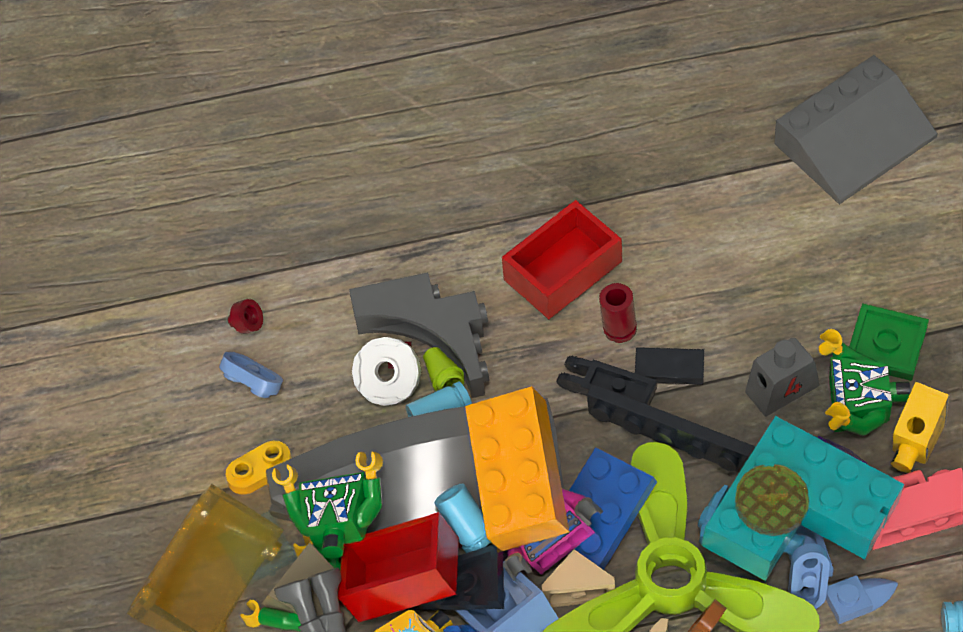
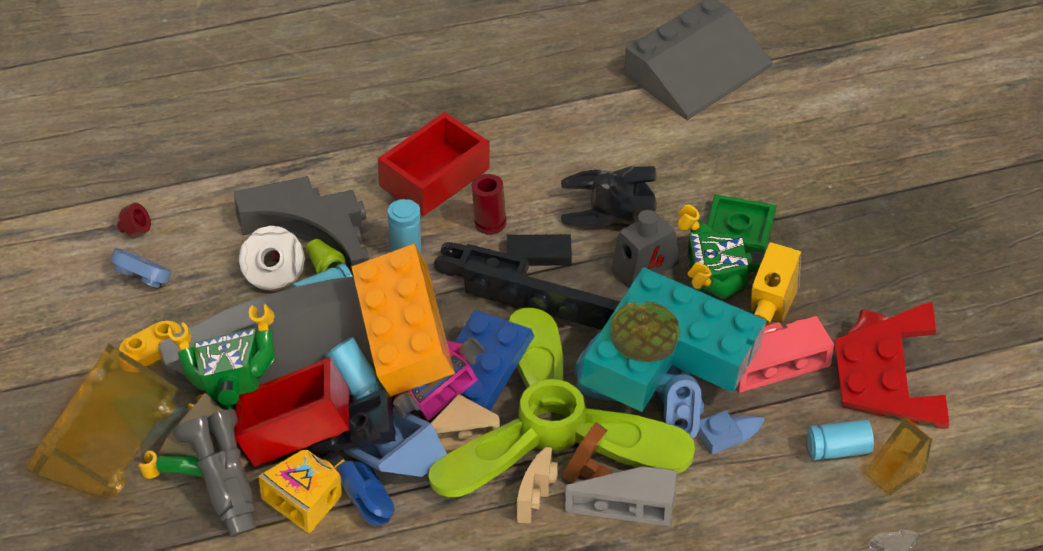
camera: 10 degrees left, 10 degrees down
(527, 341) = (404, 224): none -> medium azure piece
(754, 308) = (615, 196): none -> black piece

